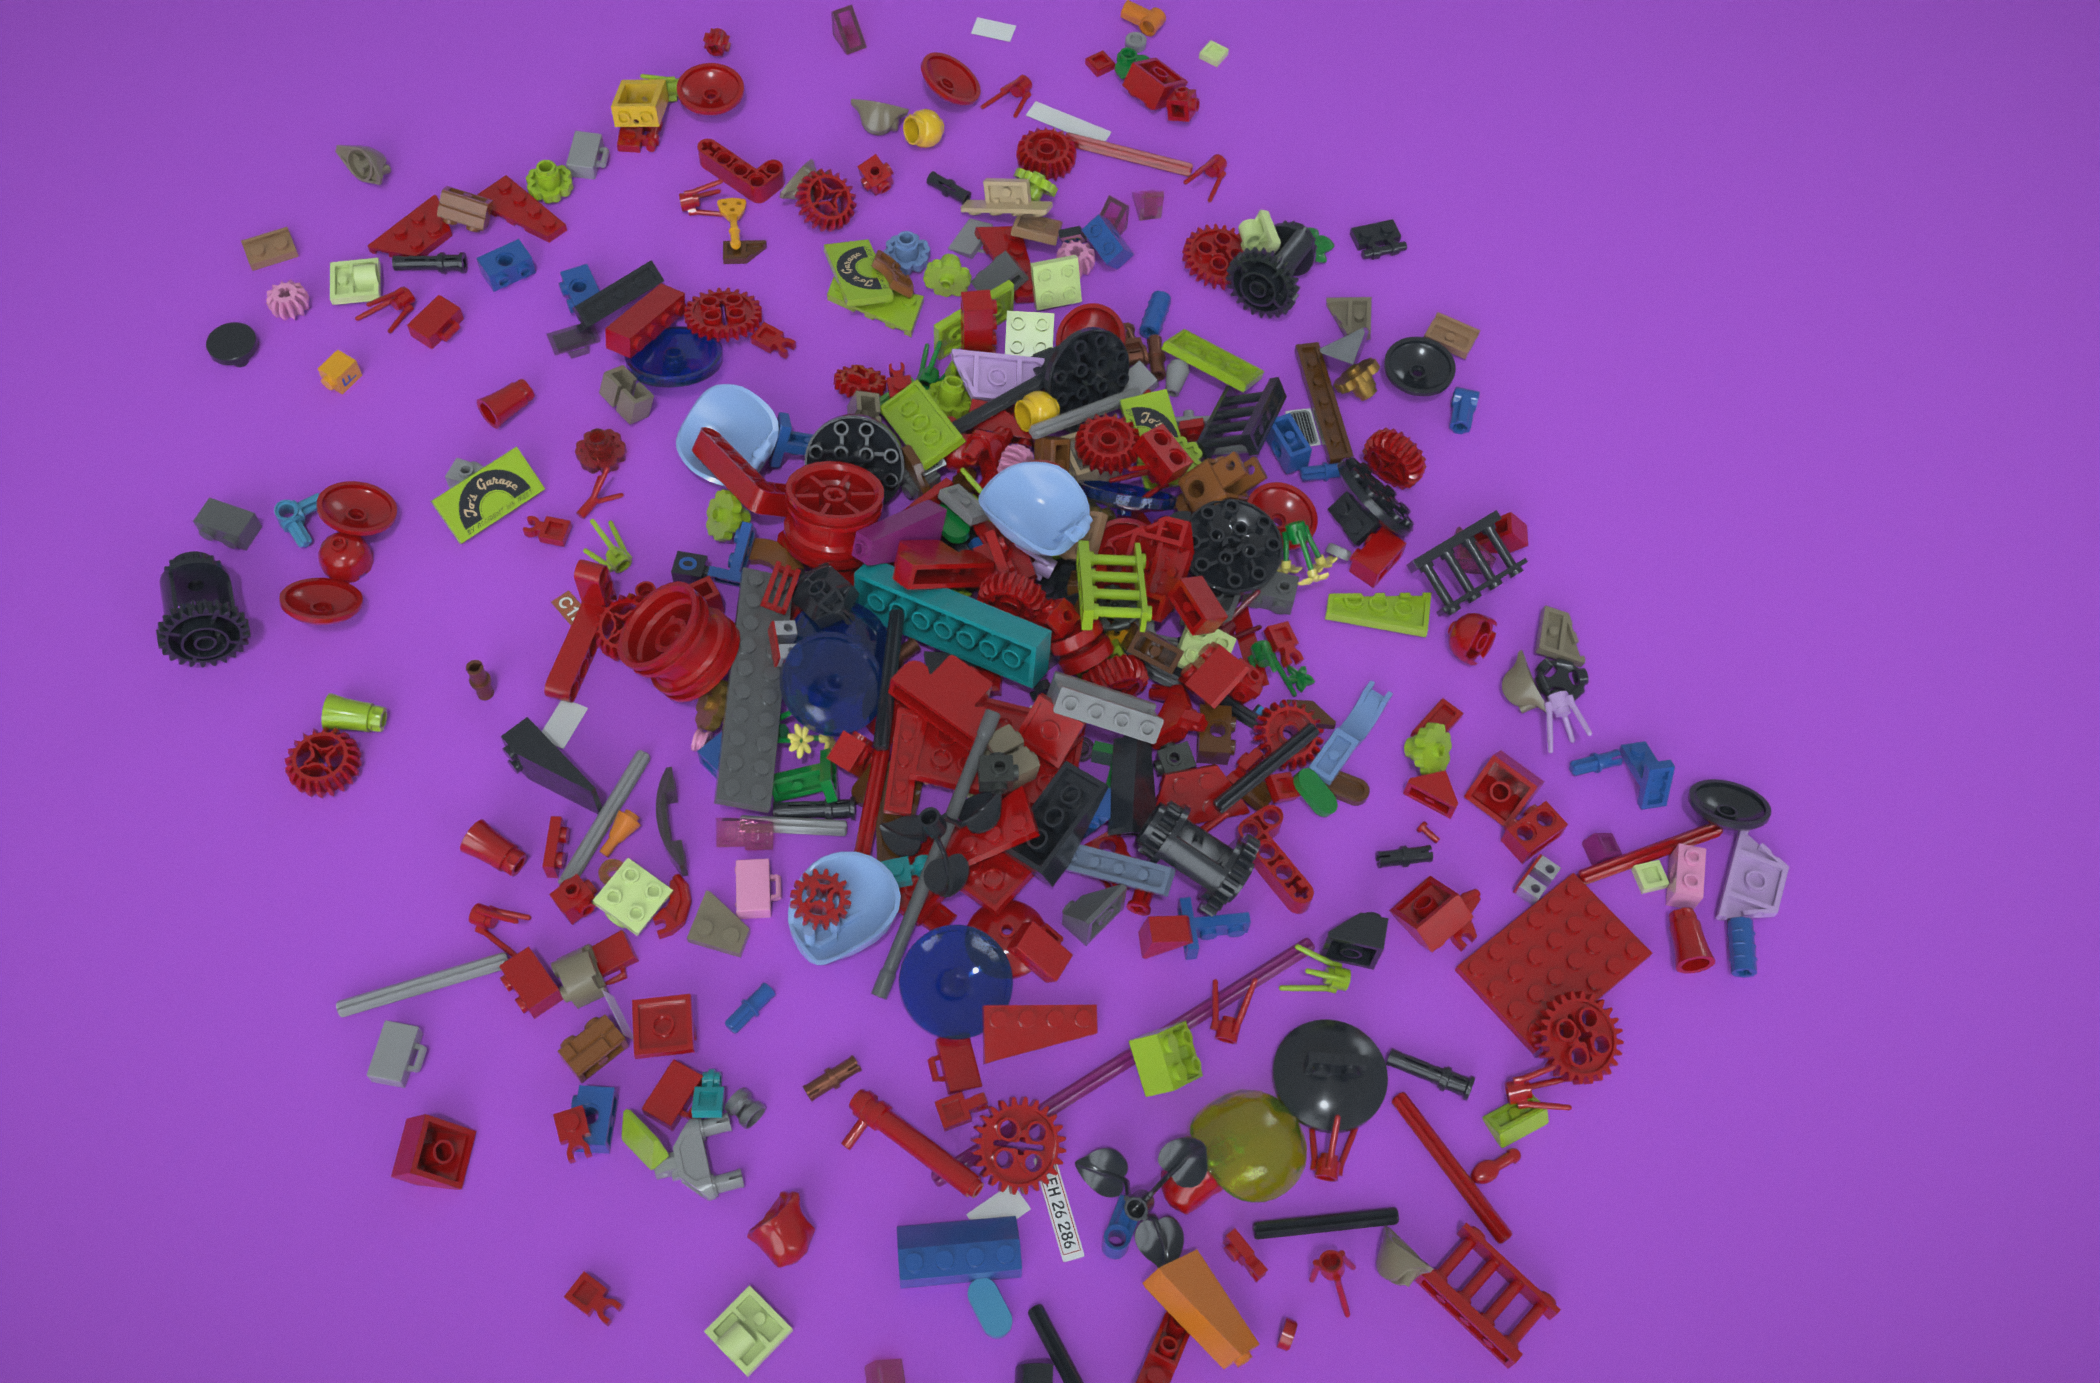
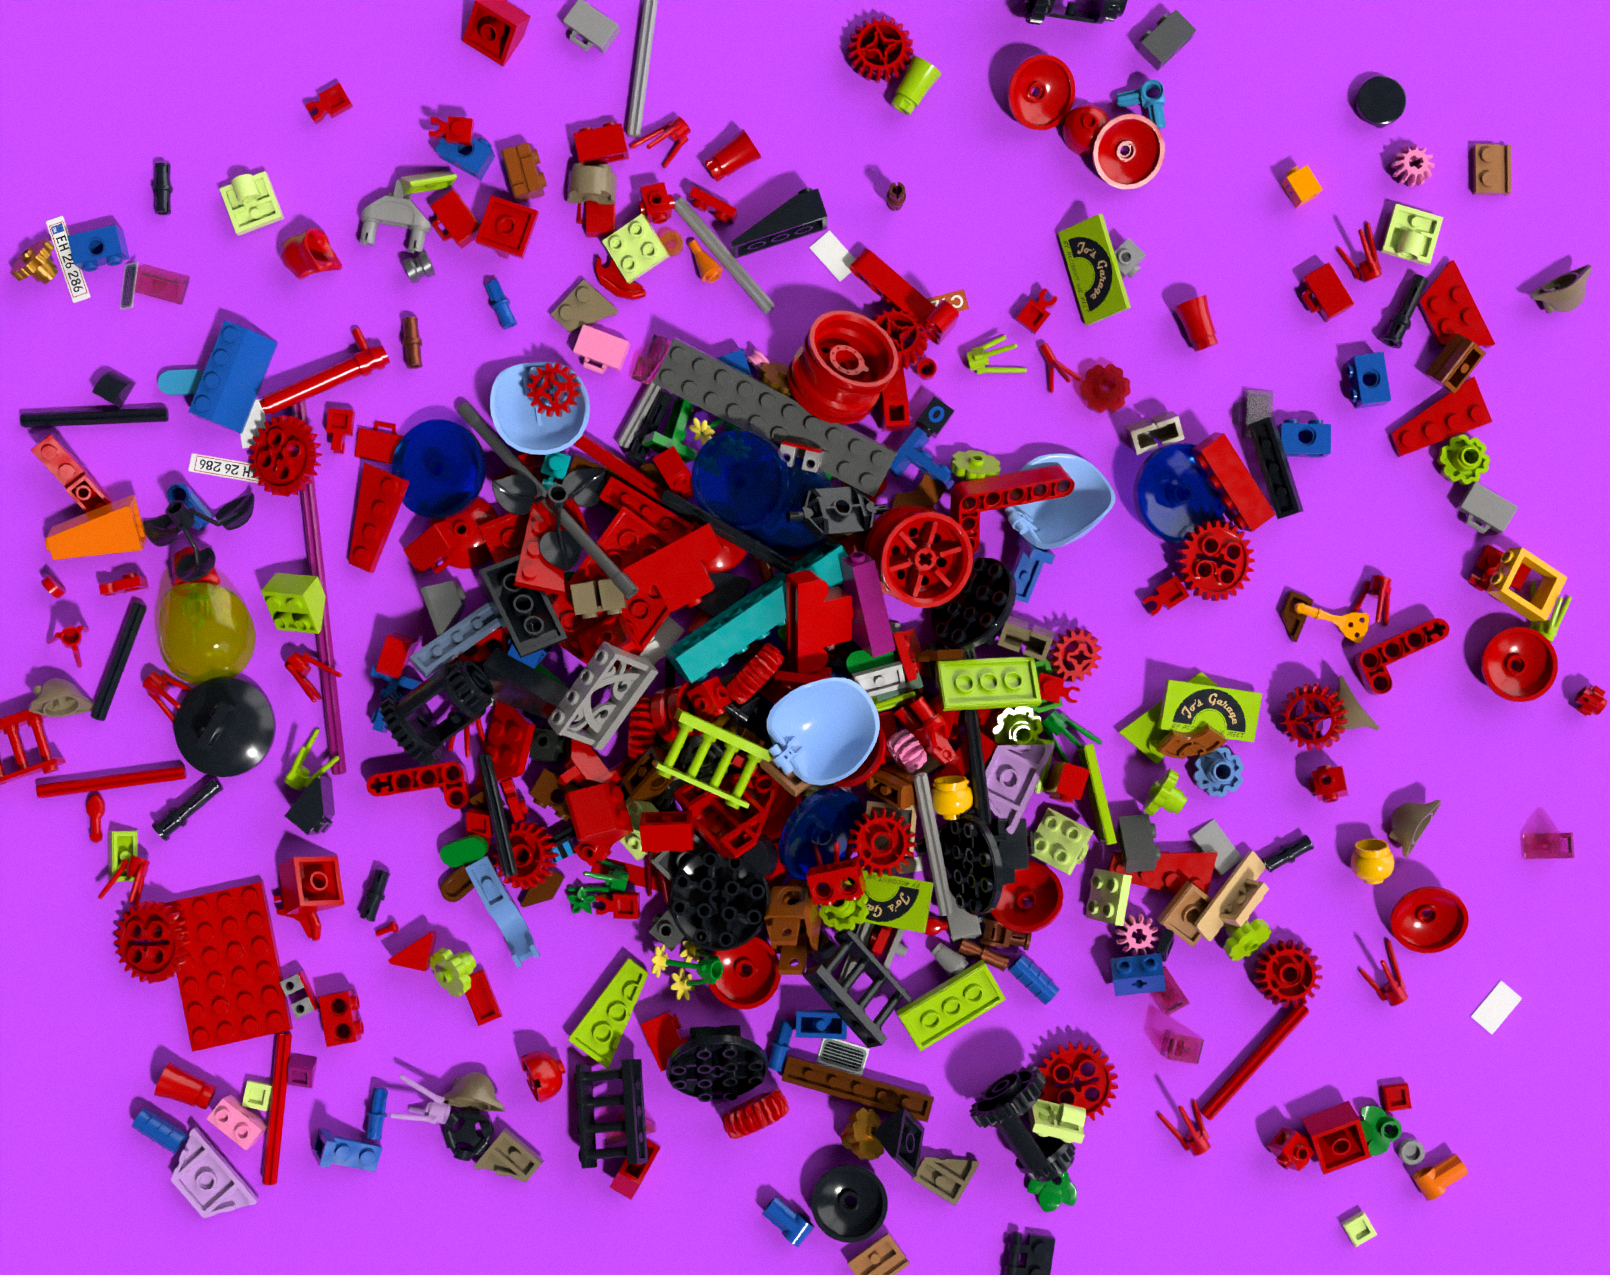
camera: 120 degrees right, 25 degrees up
(618, 1014) = (542, 201): sticker -> none
(667, 795) = (661, 300): clear smoke slope -> none
(709, 1099) = (435, 240): teal plate -> none
(787, 571) = (877, 490): red tile -> none
(997, 773) = (565, 566): pearl dark grey brick -> none
(1066, 122) = (1327, 1021): white sticker -> none
(1338, 551) = (687, 1007): light grey tile -> none
(1503, 788) = (390, 1017): red slope -> none
(1729, 805) = (277, 1214): black dish -> none

